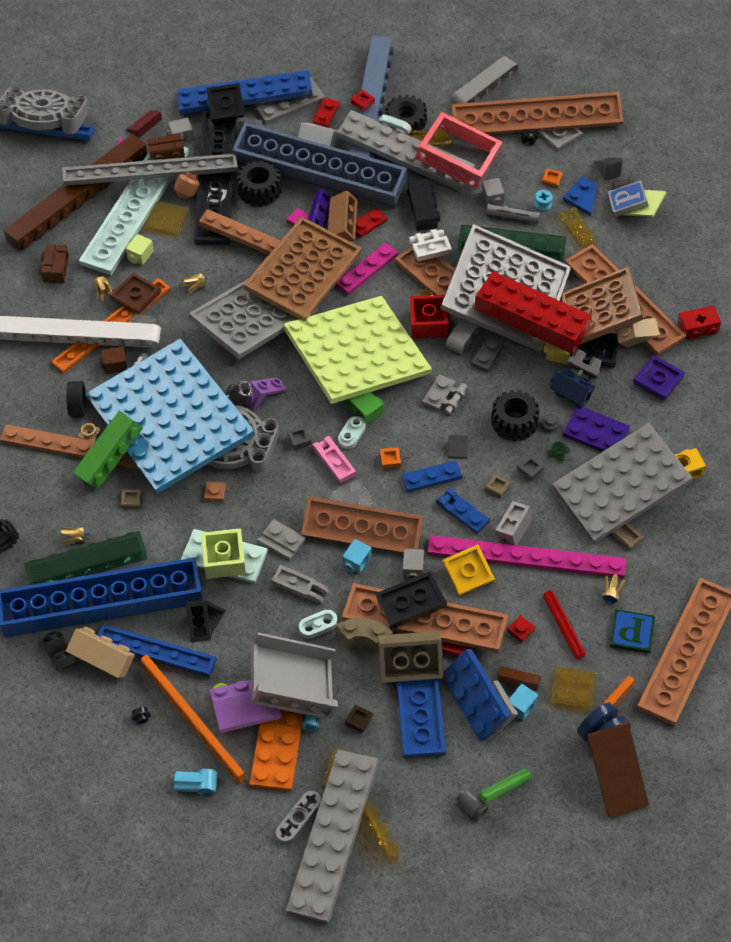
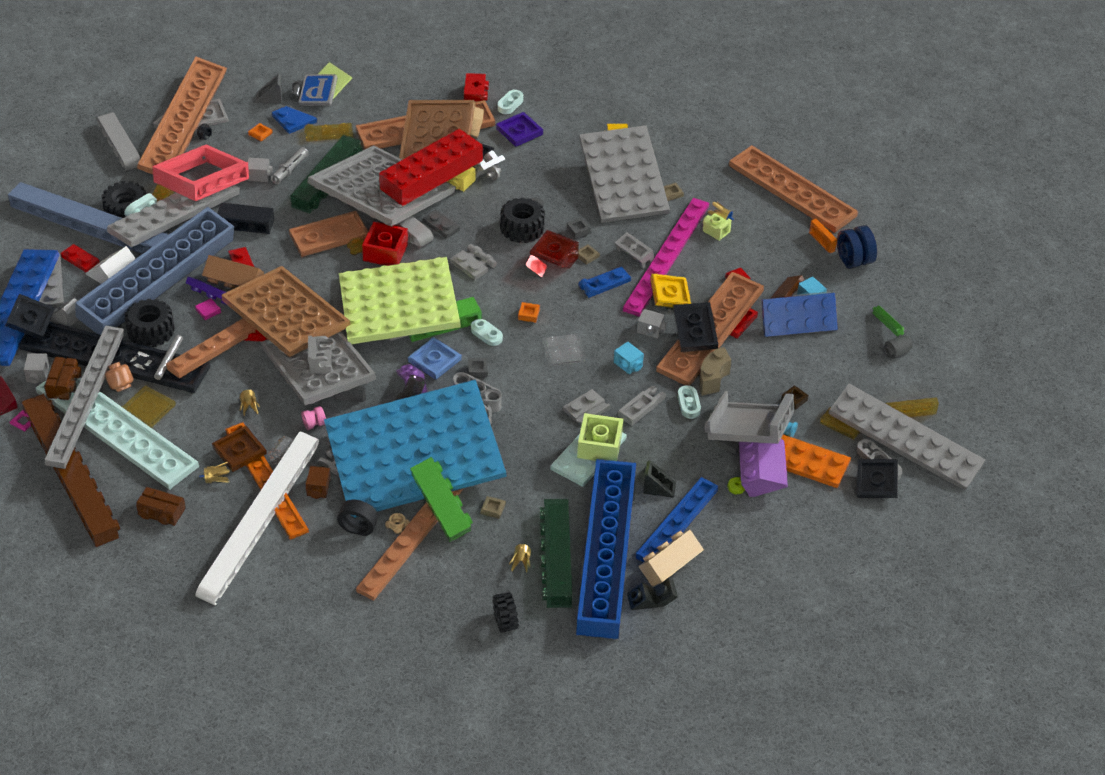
camera: 75 degrees left, 10 degrees down
(139, 249) = (181, 433): yellowish green brick -> none
(140, 715) = (744, 546): black plate -> none
(188, 332) = (313, 417): none -> bright pink wheel
(193, 720) = (761, 508): orange tile -> none
(199, 782) = (827, 518): medium azure piece -> none
(215, 491) = (512, 442): nougat plate -> none
(222, 209) = (168, 357): none -> light grey bar
(248, 307) = (319, 355): none -> light grey hinge
(264, 817) = (877, 478): none -> black plate
(299, 401) = (434, 358): none -> medium blue plate
(334, 459) = (512, 350): bright pink plate -> none
(362, 100) = (97, 217): red plate -> none
(366, 268) = (293, 265): dark pink plate -> none
(366, 524) = (597, 345): nougat plate -> none
(410, 656) = (752, 342): dark tan brick -> none
(421, 718) = (805, 358): blue plate -> none
(430, 244) = (307, 223): white plate -> none
(431, 476) = (558, 292): blue plate -> none
(475, 453) = (556, 249): none -> clear red slope
(543, 200) = (286, 142): medium azure wheel -> none
(561, 447) = (567, 207): clear green plate -> none
(564, 624) = (741, 251): red axle -> none
(570, 386) = (505, 179): dark blue brick -> none
(573, 688) = (805, 262): clear yellow plate -> none
(588, 589) = (716, 226): none -> yellowish green brick
(595, 429) = (555, 181): dark purple plate -> none
(618, 769) = (897, 246): reddish brown tile -> none
(632, 631) = (762, 214): tile -> none
(698, 357) = (507, 103): none -> light aqua plate

